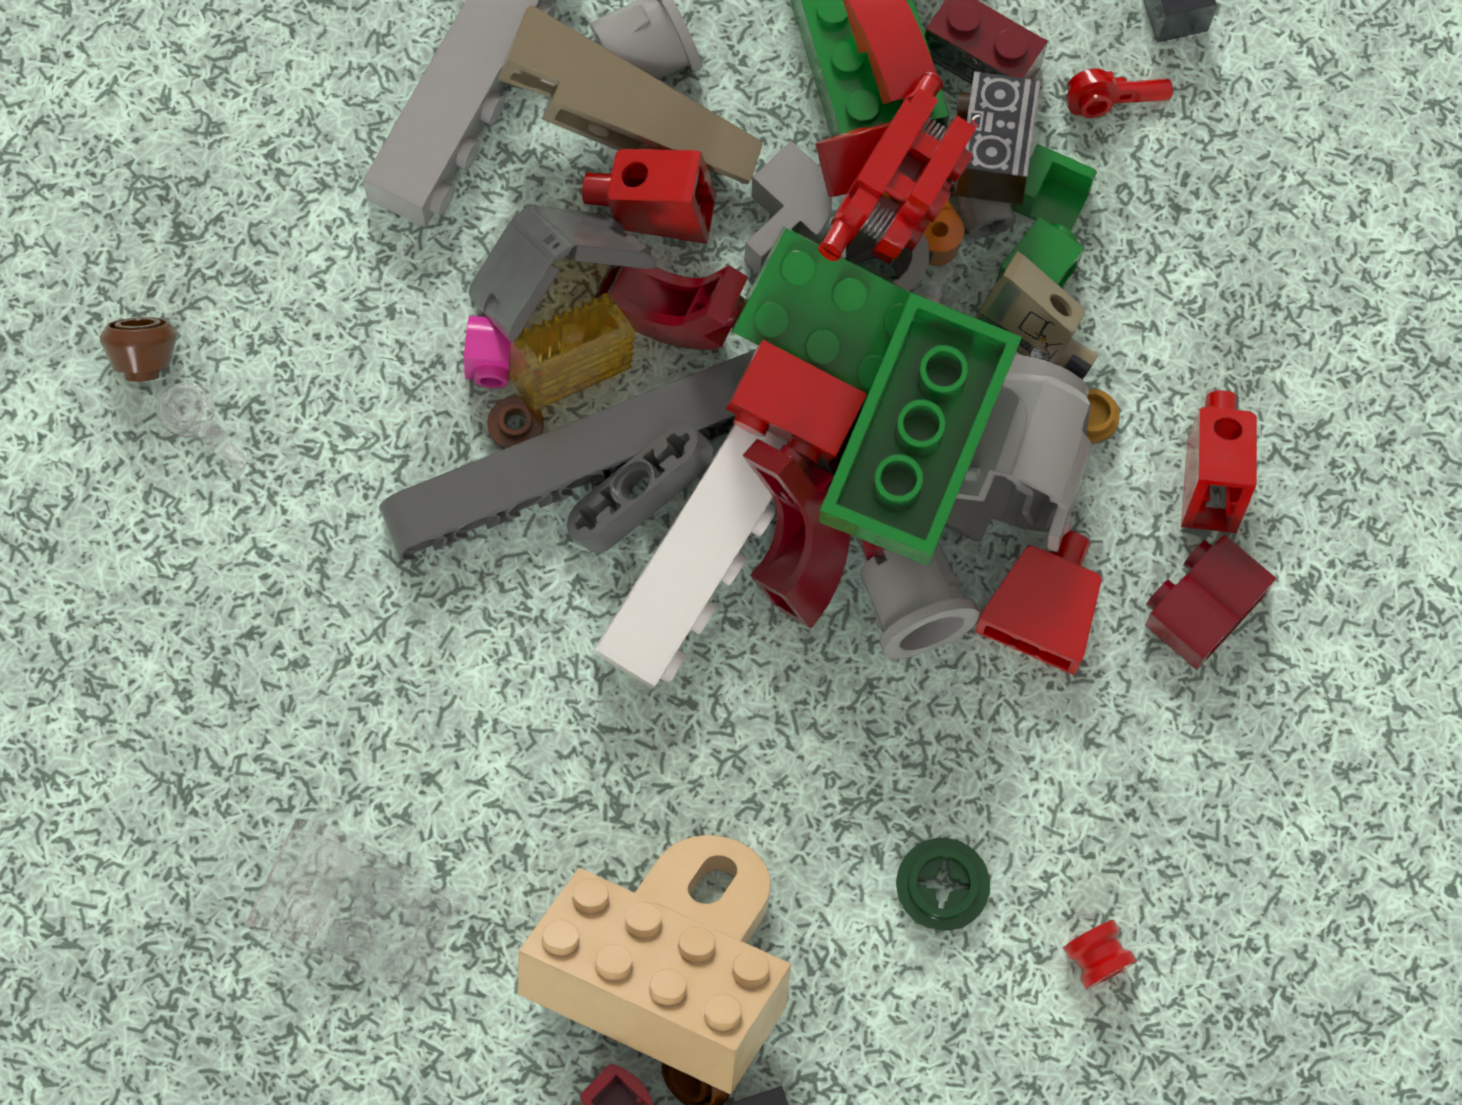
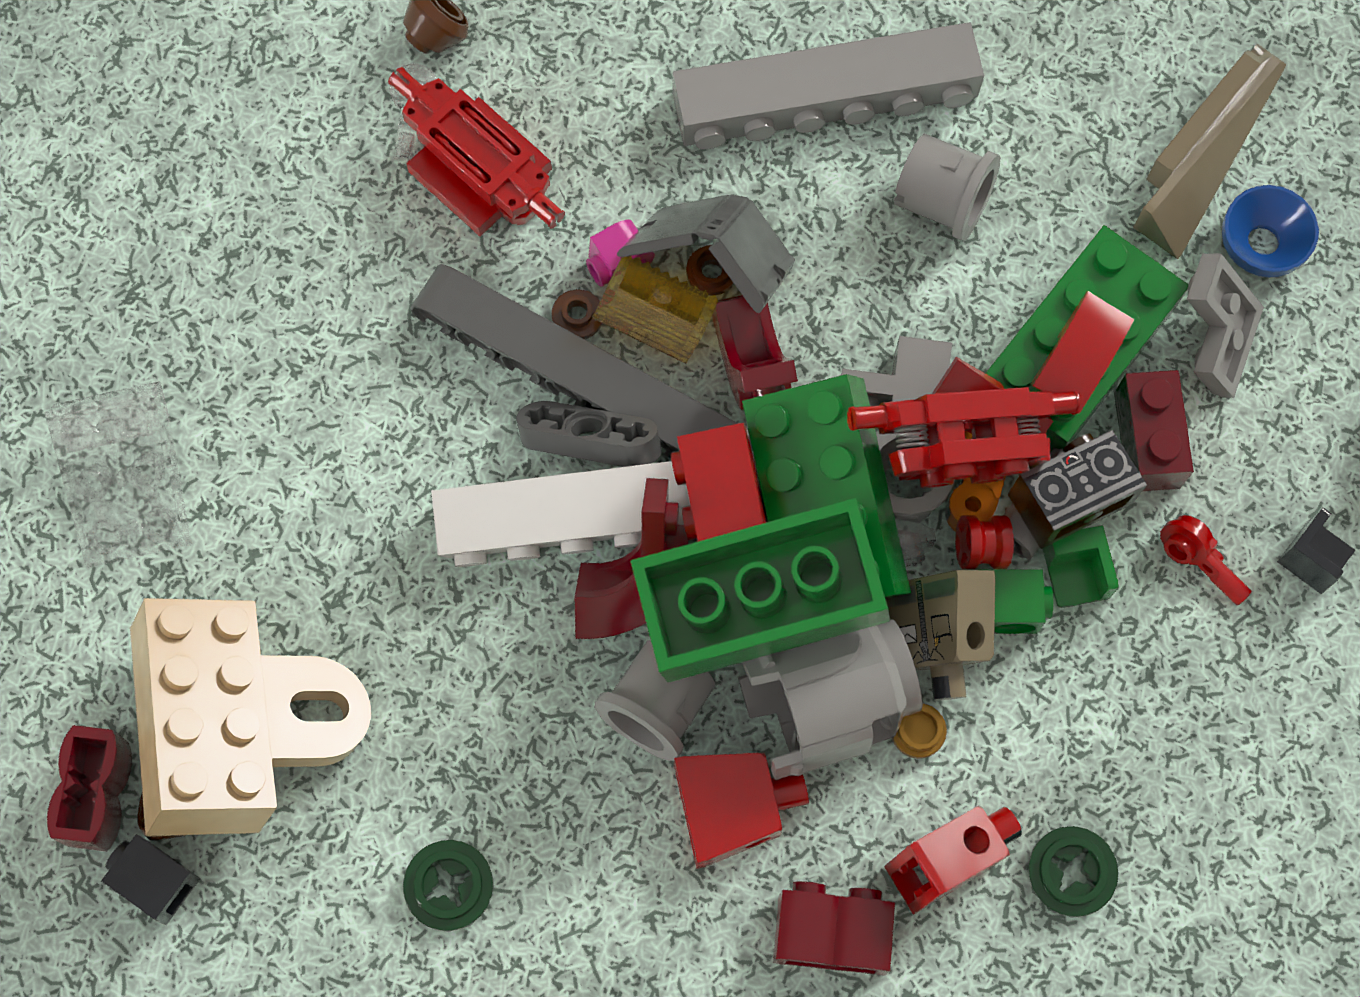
camera: 55 degrees right, 0 degrees up
(306, 402) = (474, 157): none -> red piece
(580, 280) = (695, 276): none -> reddish brown plate
(618, 102) = (880, 202): dark tan wedge -> none
(656, 193) = (827, 270): red torso -> none
(982, 243) = (984, 542): none -> red wheel
(1302, 363) = (1098, 867): none -> dark green gear

